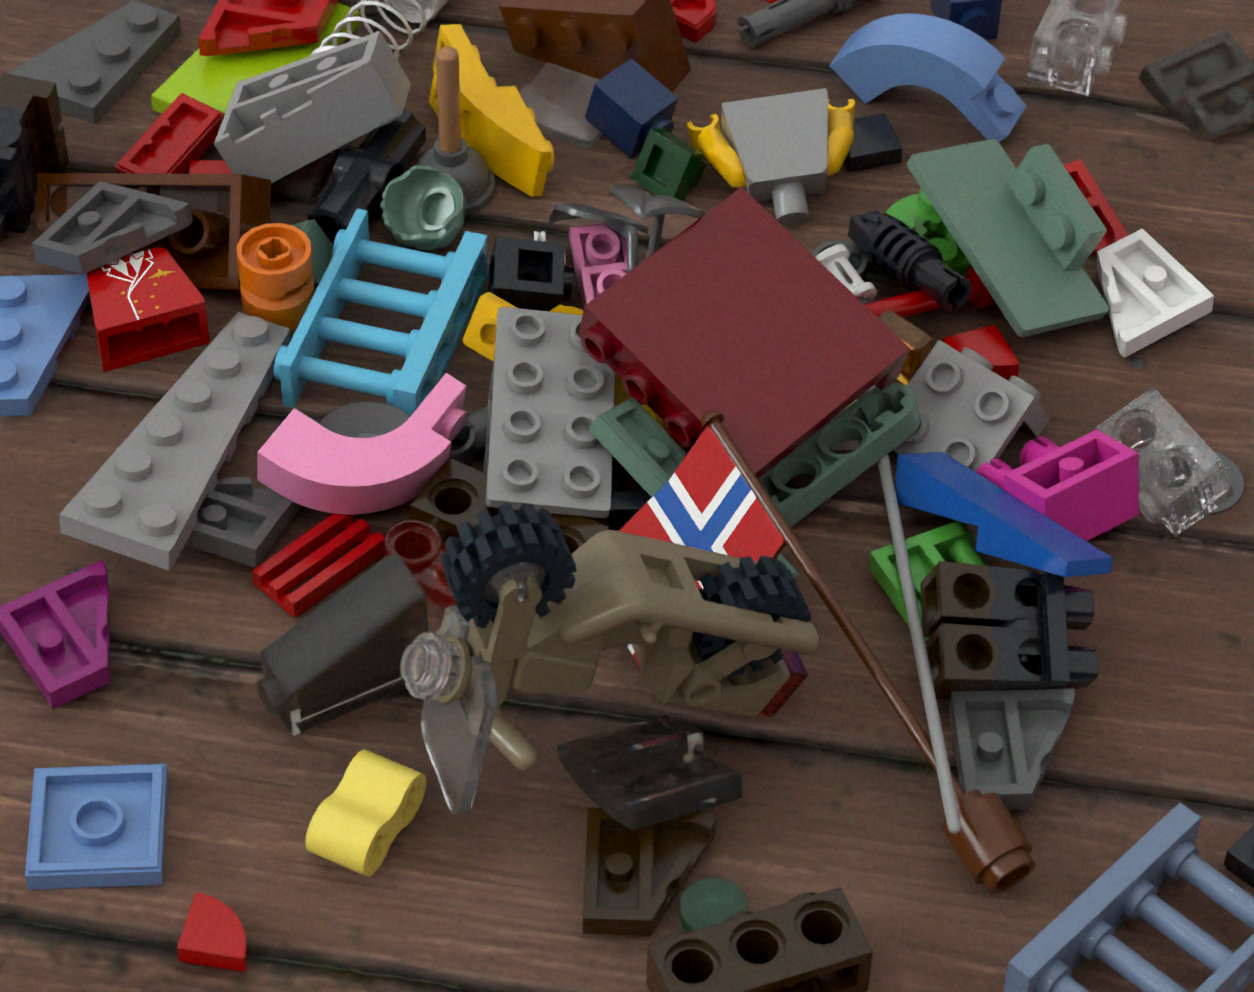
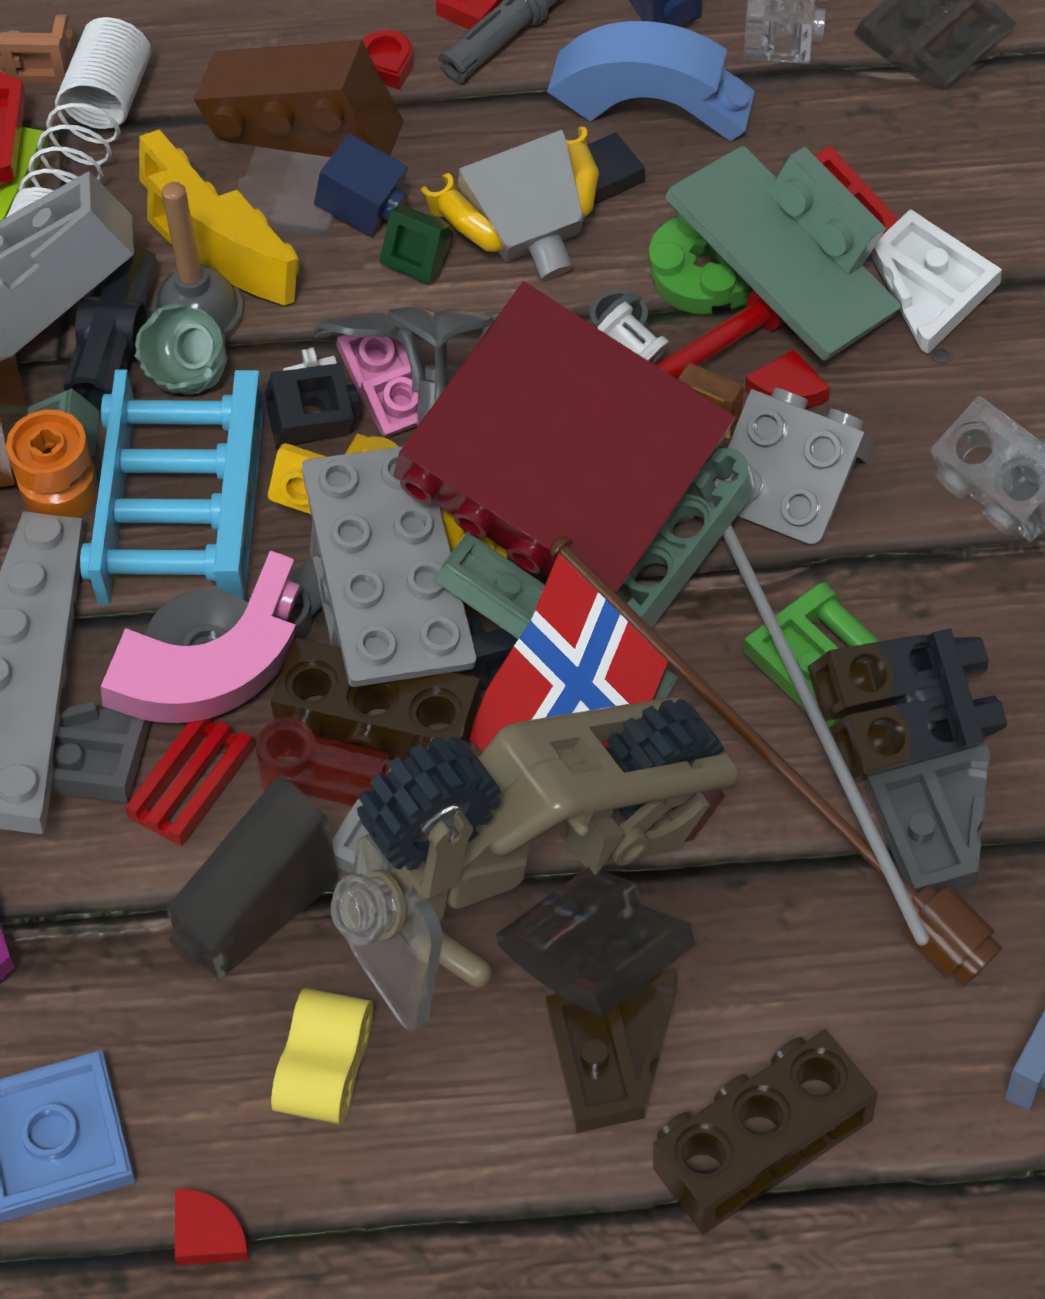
camera: 10 degrees left, 10 degrees up
(709, 903) = (697, 1073): clear green tile -> none
(908, 258) = (691, 298): black hinge -> none
(1004, 522) = (880, 585): blue slope -> none
(1080, 485) = (920, 528): dark pink brick -> none

